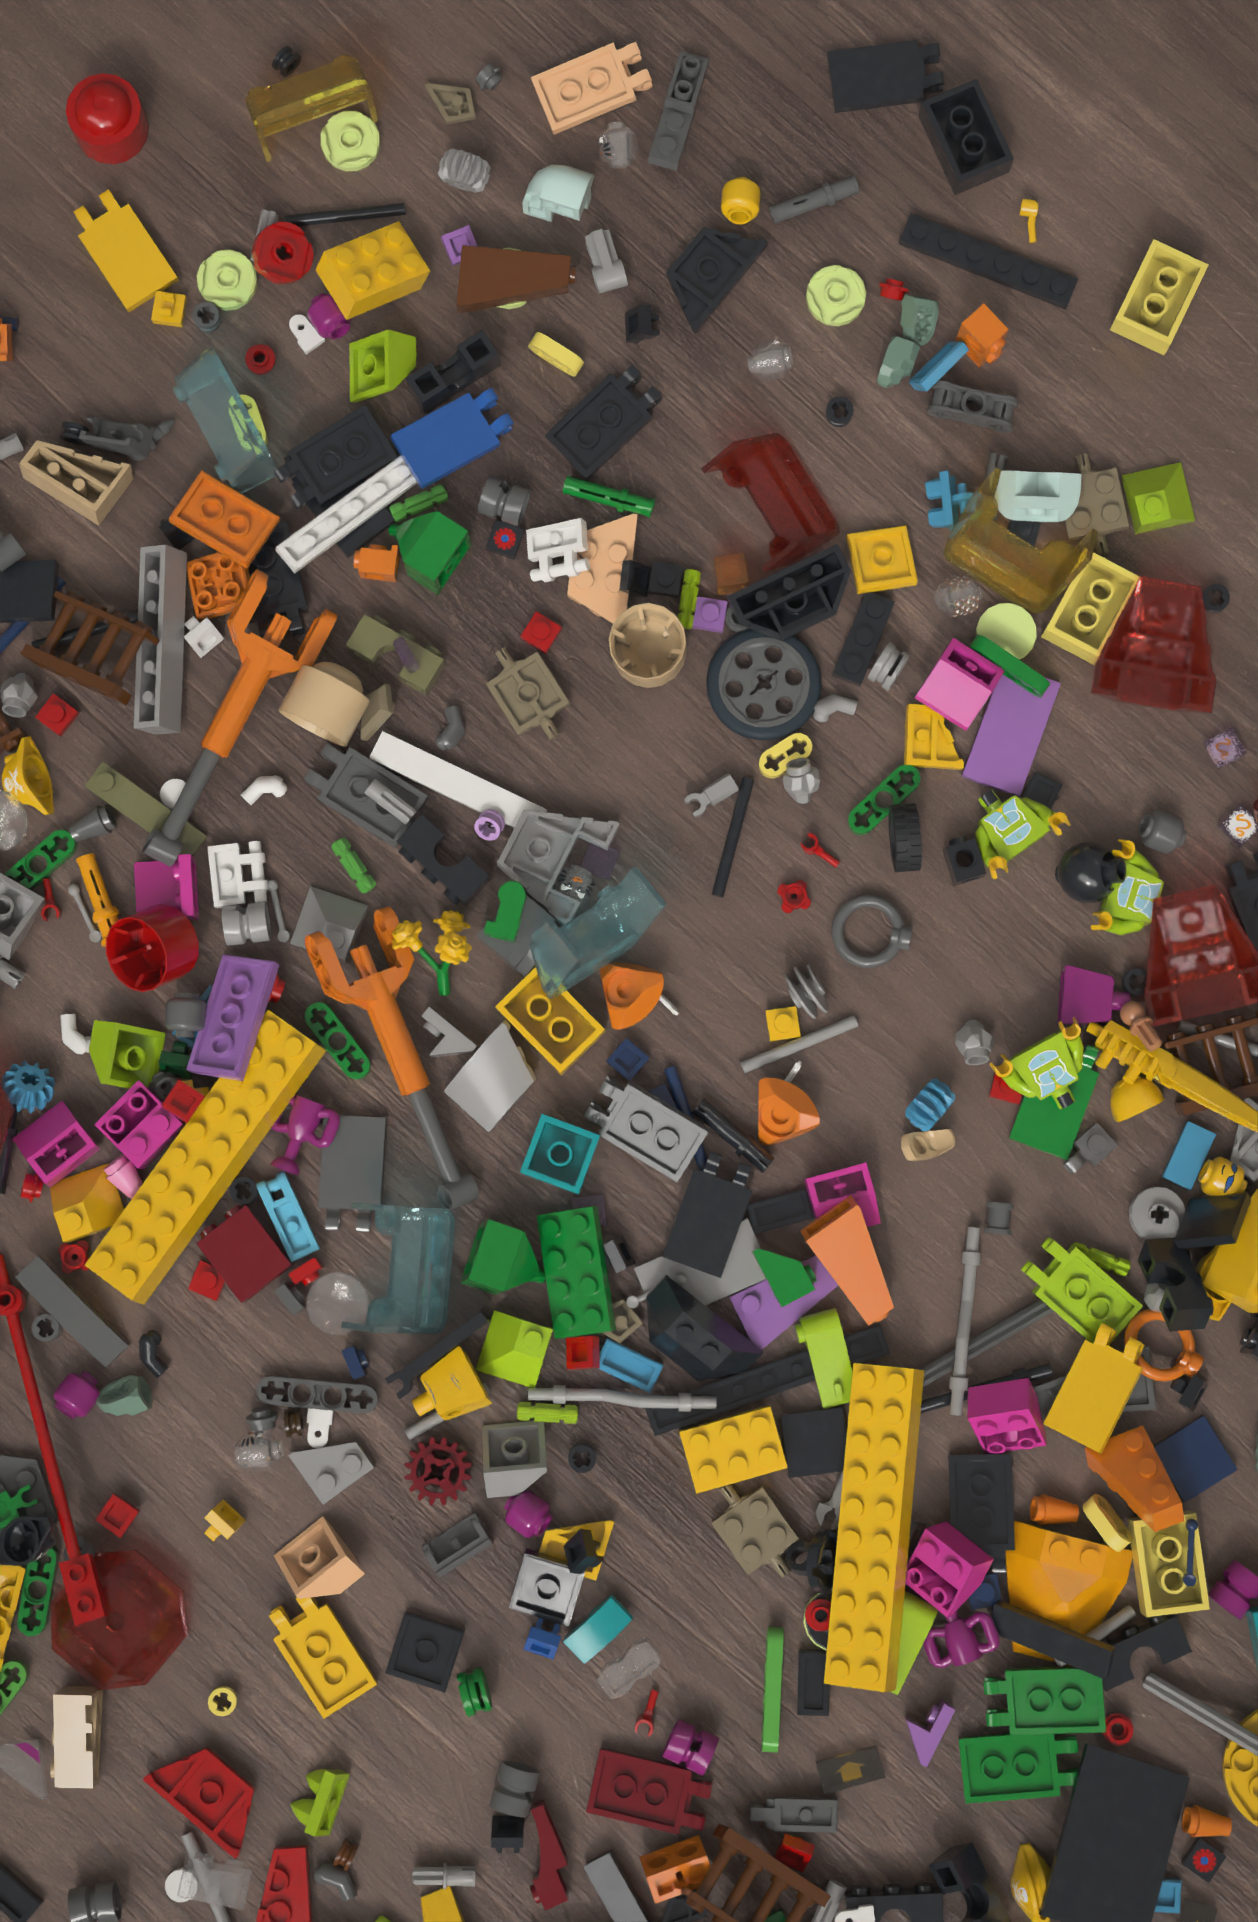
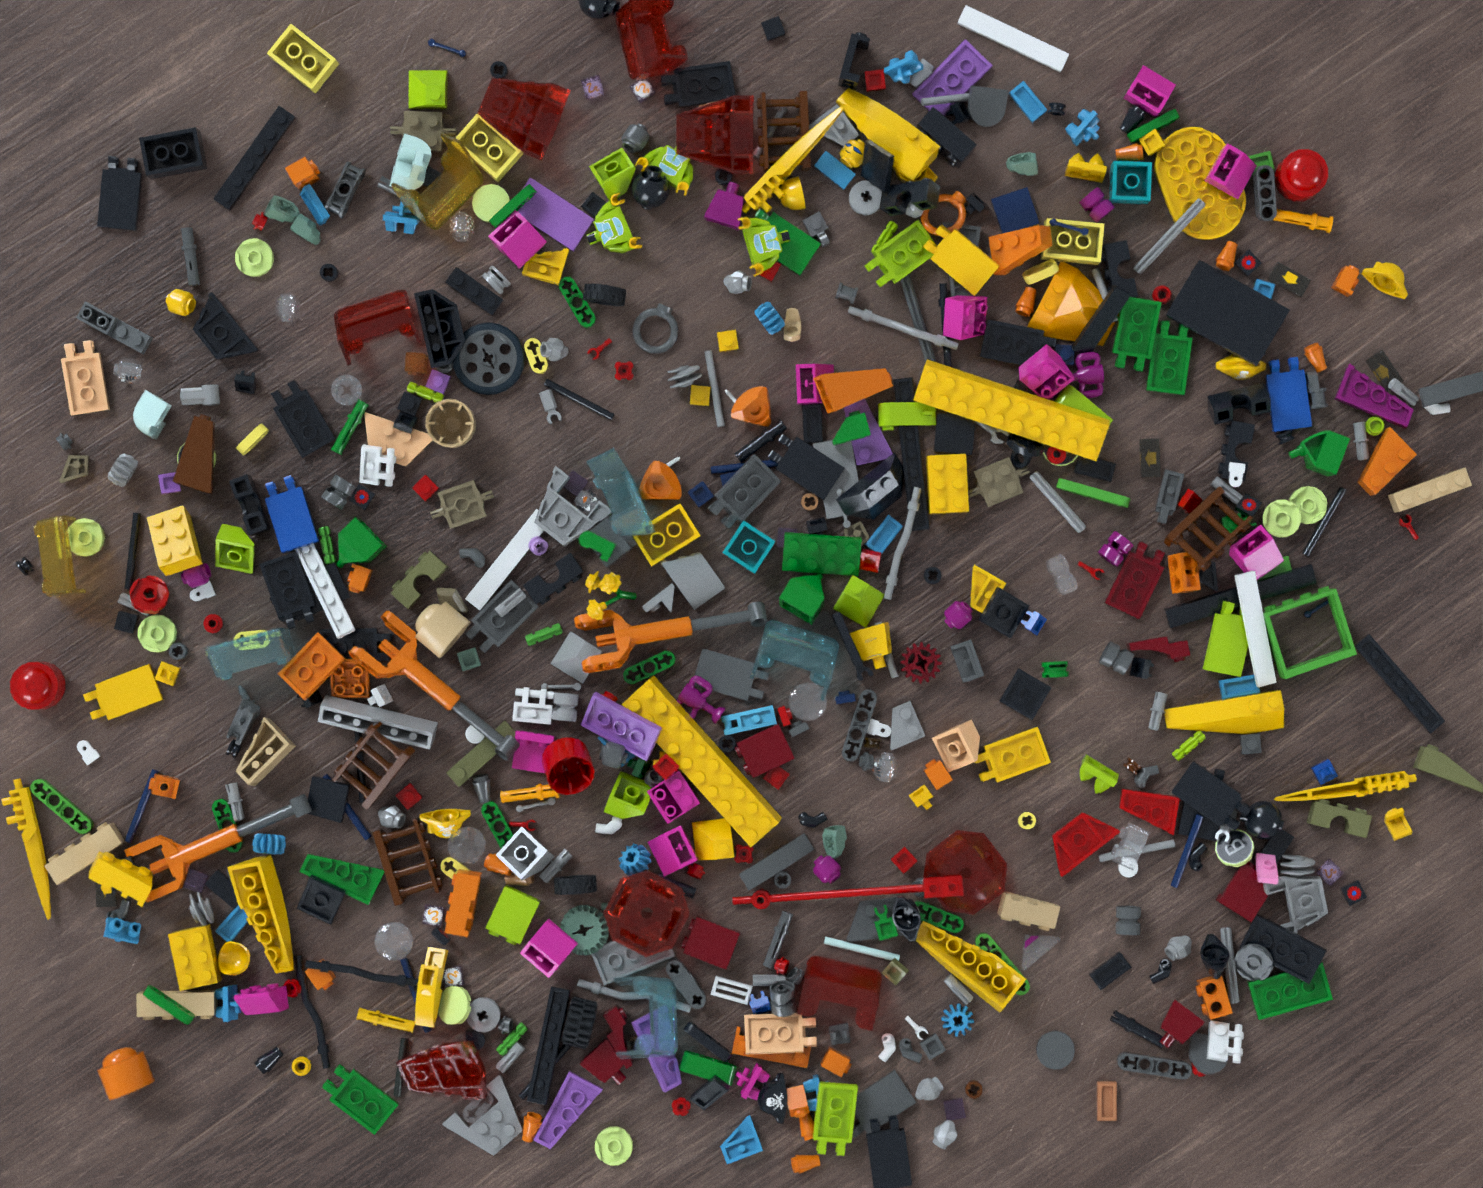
camera: 80 degrees left, 5 degrees up
(20, 221) = (90, 754): none -> white piece
(124, 1176) = (702, 813): bright pink cone -> none
(234, 230) = (126, 622): none -> black plate
(264, 784) = (481, 678): white arm -> none
(266, 1538) = (937, 773): none -> orange brick
(289, 758) = (469, 659): none -> sand green plate
(405, 655) = (423, 572): tile -> none
(513, 1457) = (922, 615): light grey slope -> none
(547, 1412) = (901, 589): lime axle -> none
(582, 1552) = (987, 586): black tile -> none
(598, 1629) = (1035, 588): teal slope -> none
(661, 465) = (337, 390): none -> clear gear
(663, 1230) = (808, 495): none -> medium nougat bush
(745, 1634) = (1057, 501): none -> light grey axle
(831, 704) = (511, 321): light grey arm -> none
(879, 1047) = (727, 340): none -> yellow plate
(881, 559) = (428, 268): yellow plate -> none
(927, 1739) = (1142, 409): medium lavender slope -> none
(964, 874) = (634, 264): black brick -> none
(1029, 209) = (227, 124): yellow hand -> none
(1099, 810) = (614, 173): none -> lime slope
(1133, 1014) = (743, 182): nougat axle -> none
(1230, 488) = (431, 42): none -> dark blue hinge

